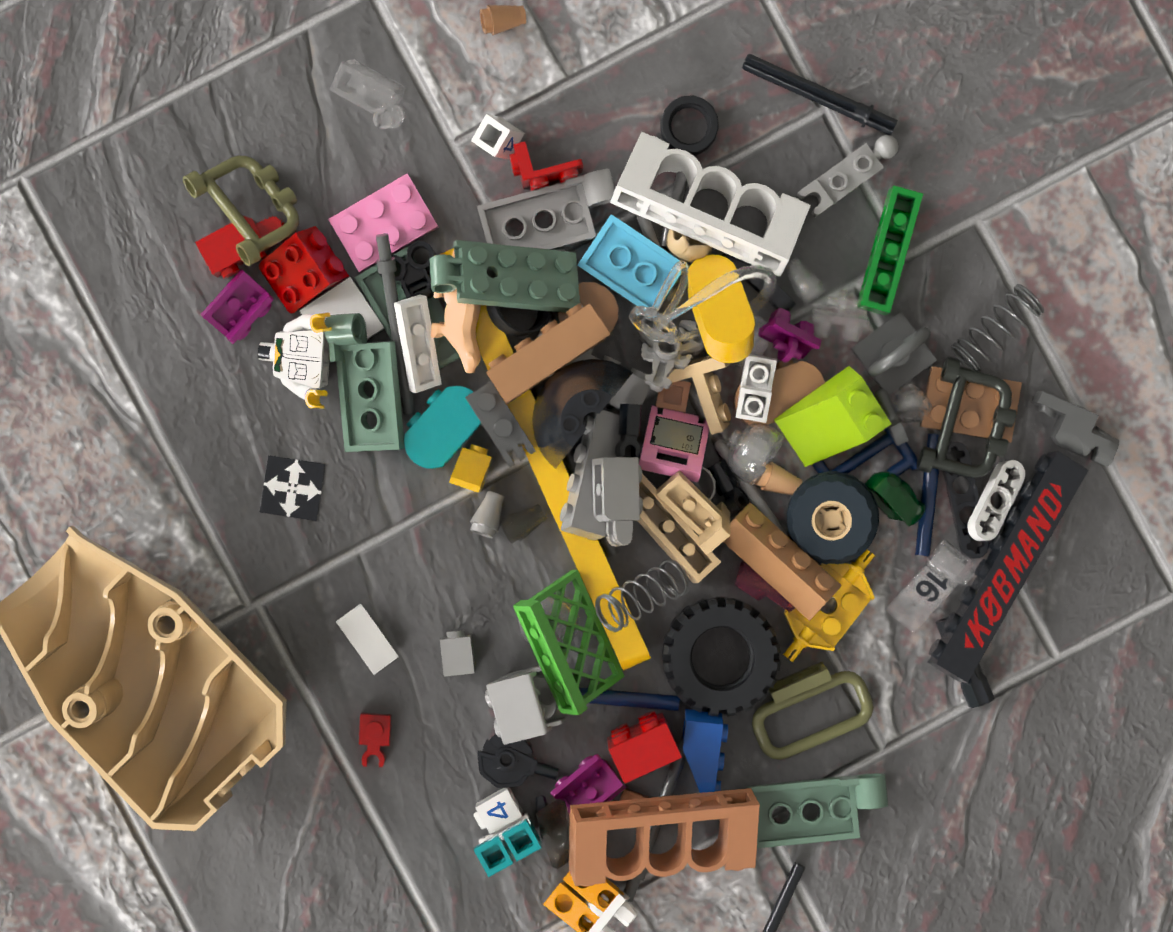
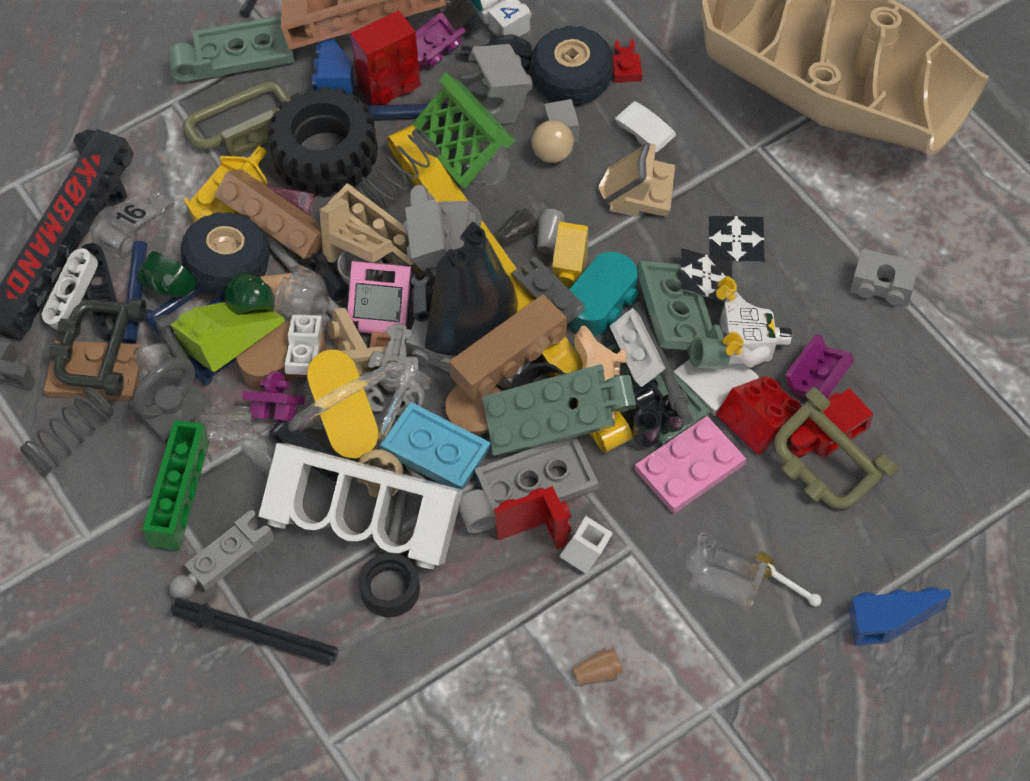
camera: 175 degrees right, 30 degrees down
(130, 408) = (873, 270): none -> light grey brick
(223, 34) = (887, 616): none -> blue slope
(330, 101) = (814, 599): none -> white hinge
(332, 437) = (702, 273): none -> black sticker
(386, 560) = (638, 184): none -> tan piece
(436, 730) = (572, 65): none -> black wheel
(471, 623) = (552, 141): none -> tan hair
(810, 451) = (248, 293): none -> dark green piece

